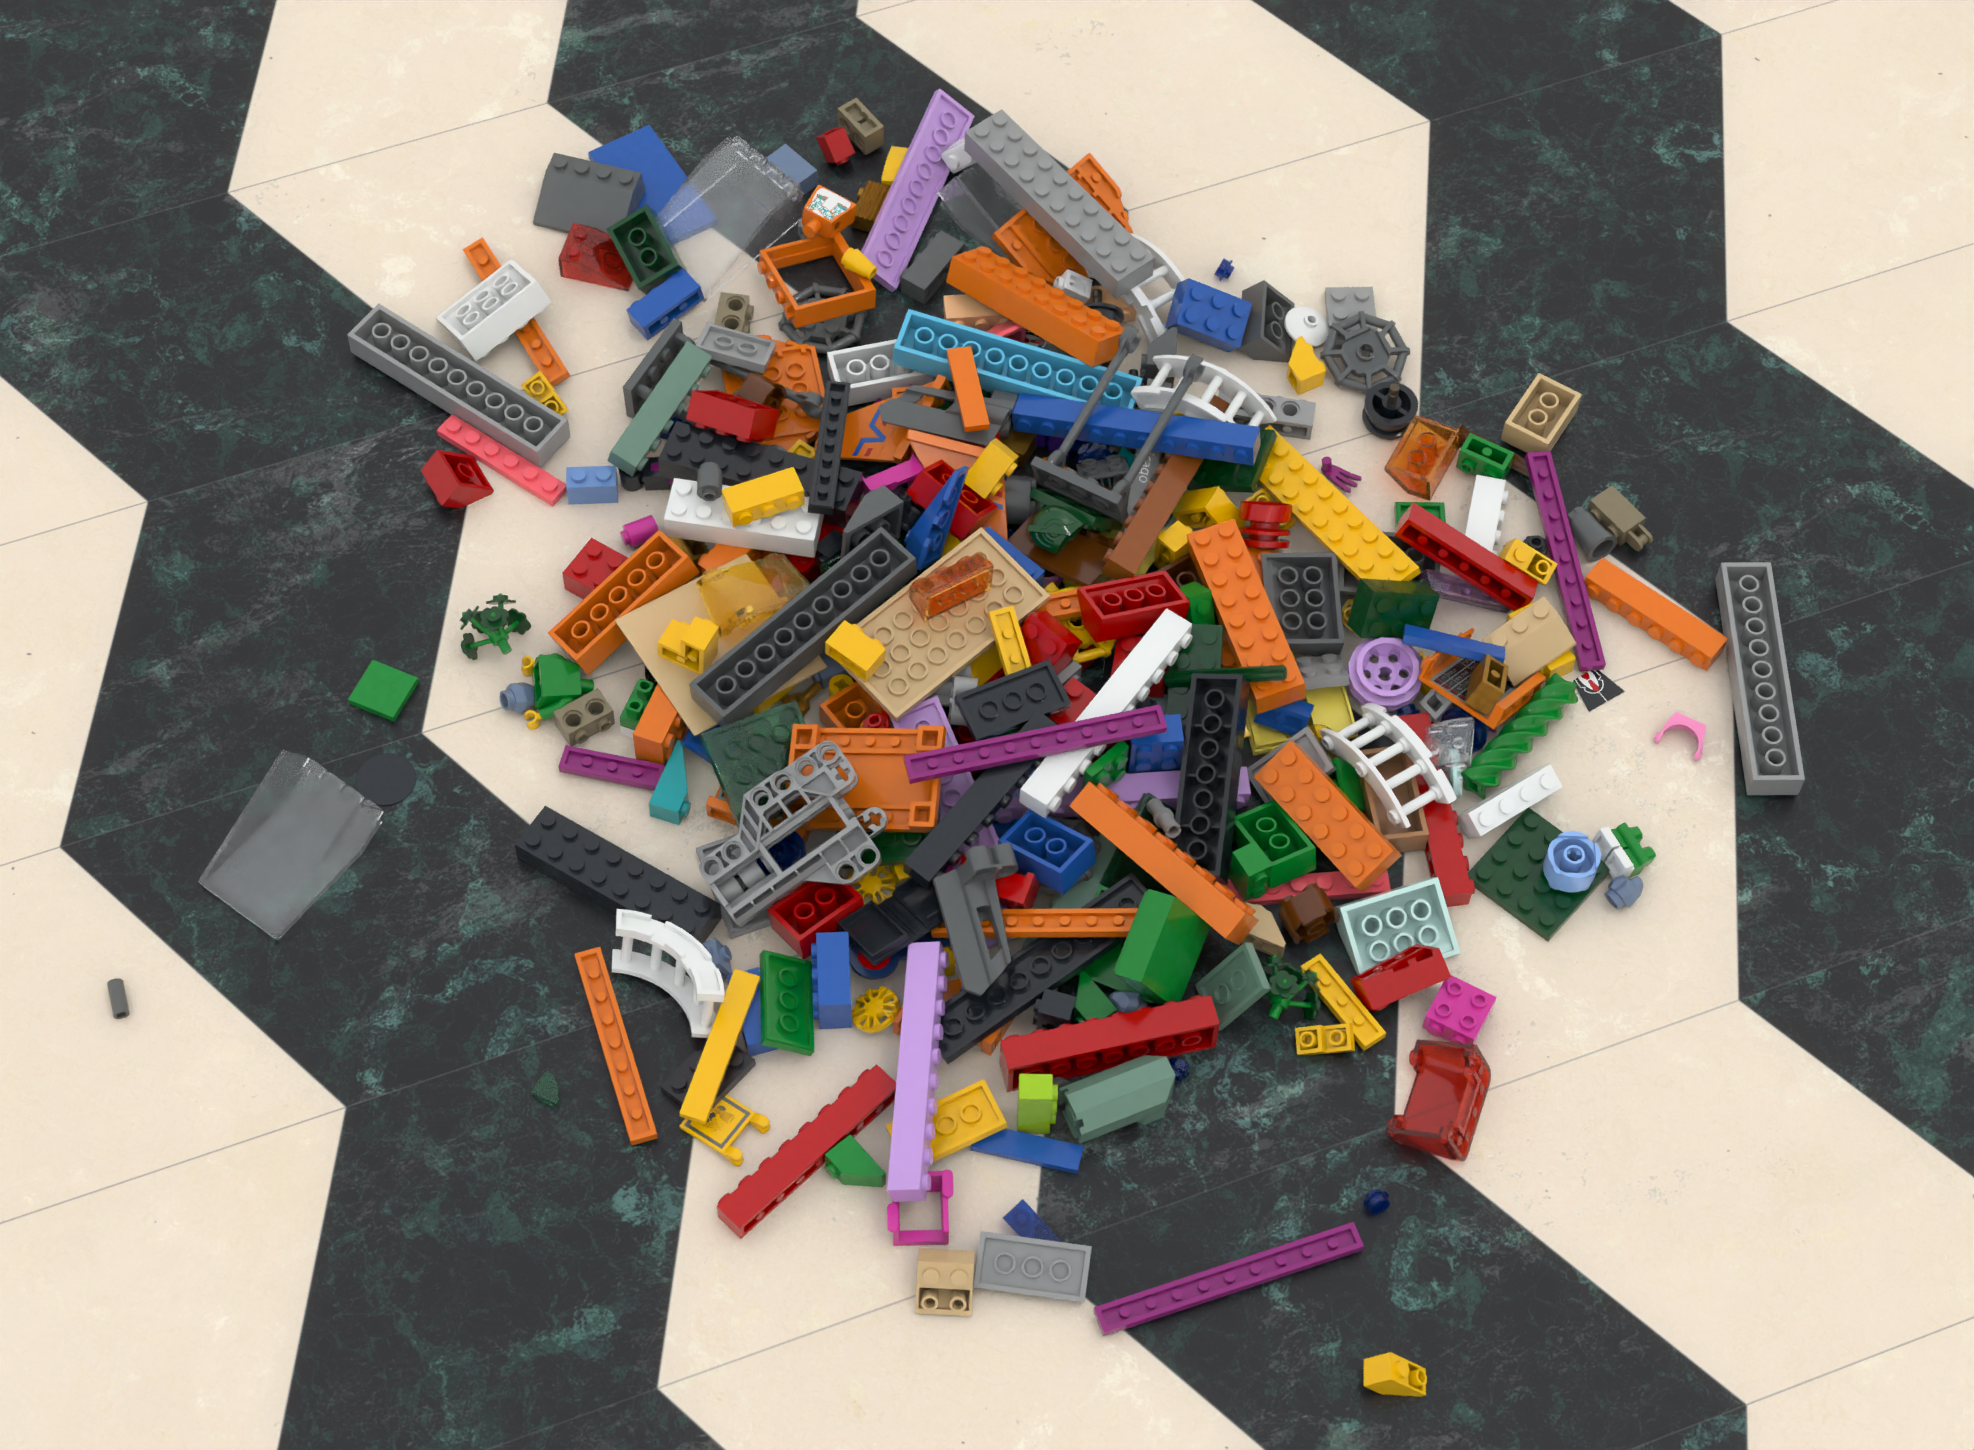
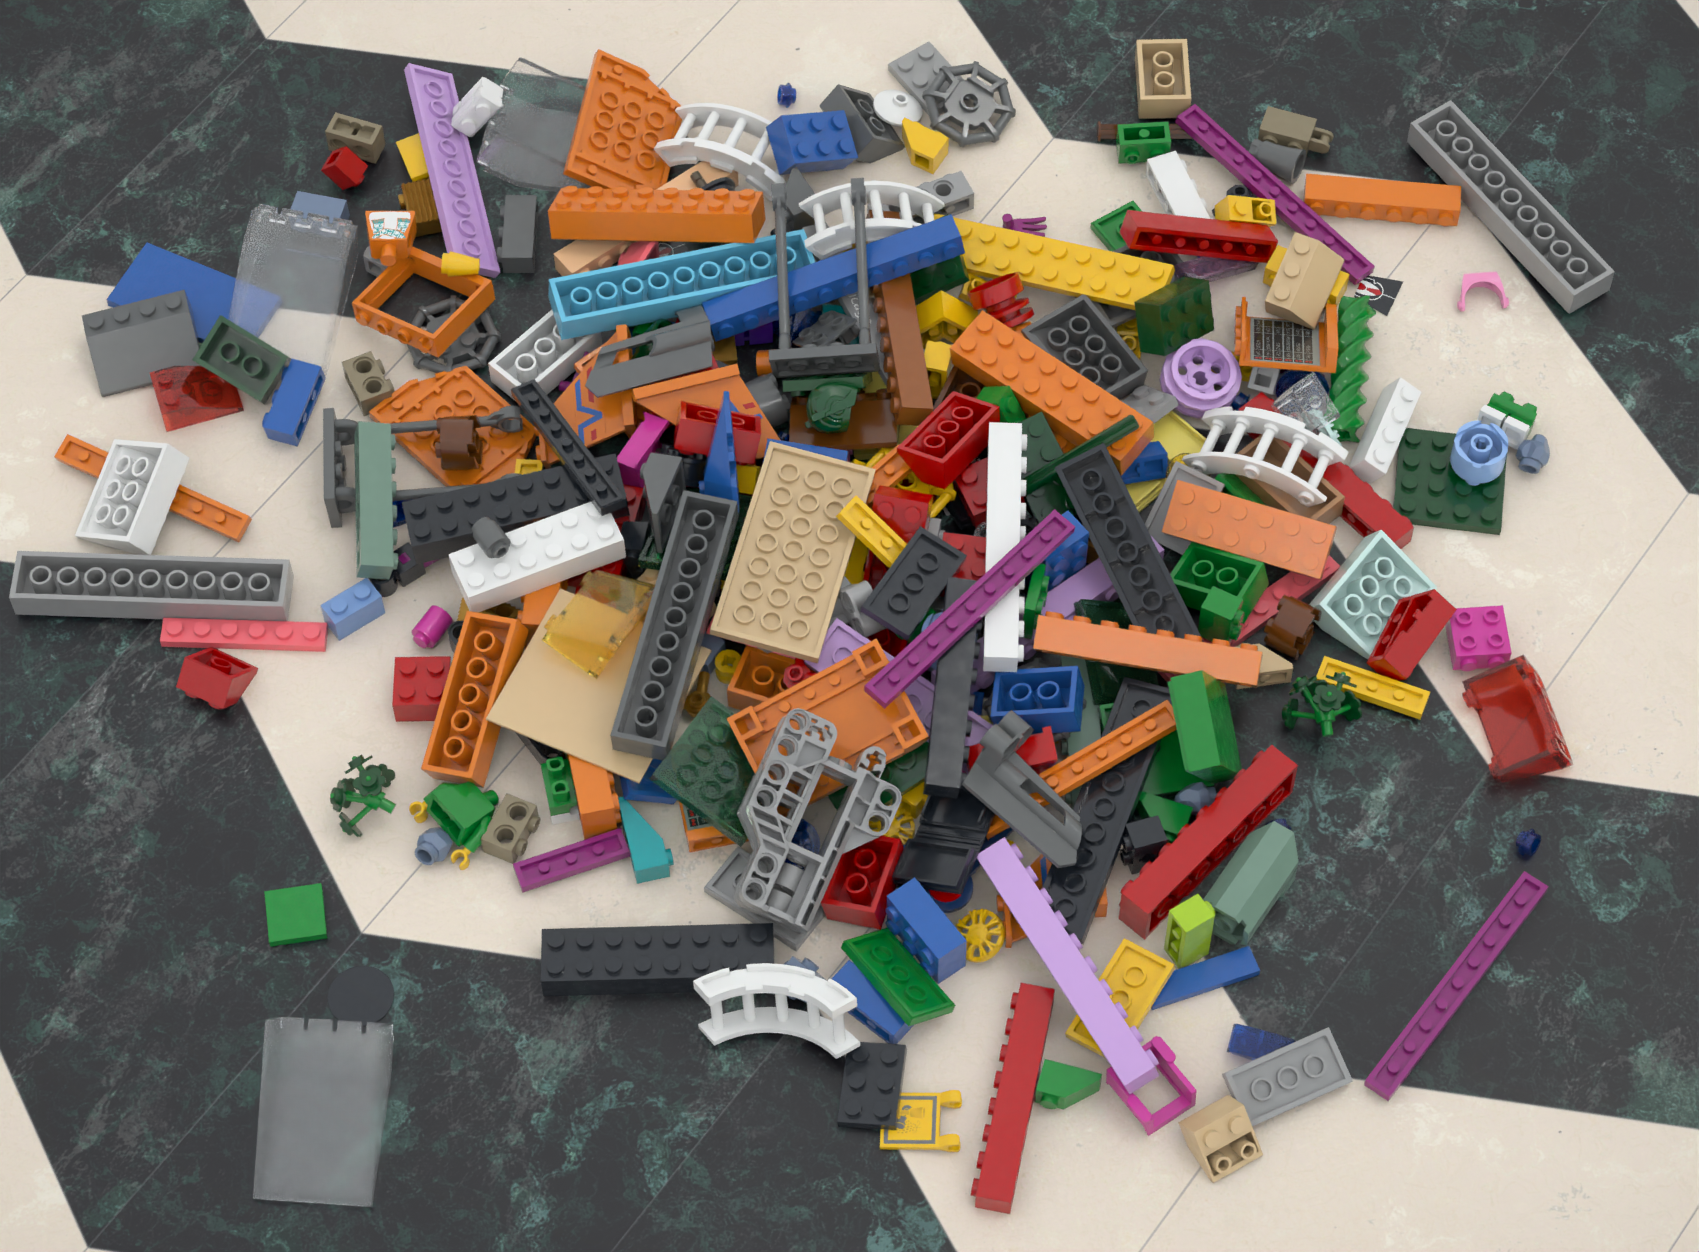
camera: 30 degrees left, 0 degrees up
(542, 391) = (235, 546): yellow slope -> none
(546, 1089) = (735, 1188): clear green tile -> none
(615, 1046) = (768, 1110): orange plate -> none
(690, 645) = (579, 702): yellow brick -> none
(719, 1046) = (872, 1055): yellow tile -> none
(732, 415) = (453, 467): red brick -> none
(736, 348) = (400, 404): light grey plate -> none
(763, 497) = (552, 524): yellow brick -> none
(855, 650) = (742, 617): yellow brick -> none
(951, 586) = (786, 507): clear orange slope -> none
(967, 389) = (659, 323): orange tile -> none
(990, 468) = (738, 377): yellow brick -> none
(1059, 204) = (610, 109): light grey brick -> none
(1074, 285) = (670, 178): white bracket -> none
(1163, 818) = (1113, 612): light grey pin -> none
(1235, 984) = (1279, 720): sand green plate -> none
(1325, 1039) = (1382, 728): yellow slope -> none
(1389, 409) = (1028, 143): black wheel -> none
(1394, 1376) = (1654, 982): yellow slope -> none
(1423, 456) = (1088, 168): clear orange slope -> none
(1451, 644) = (1249, 317): blue tile -> none
(1486, 684) = (1304, 336): pearl gold brick -> none

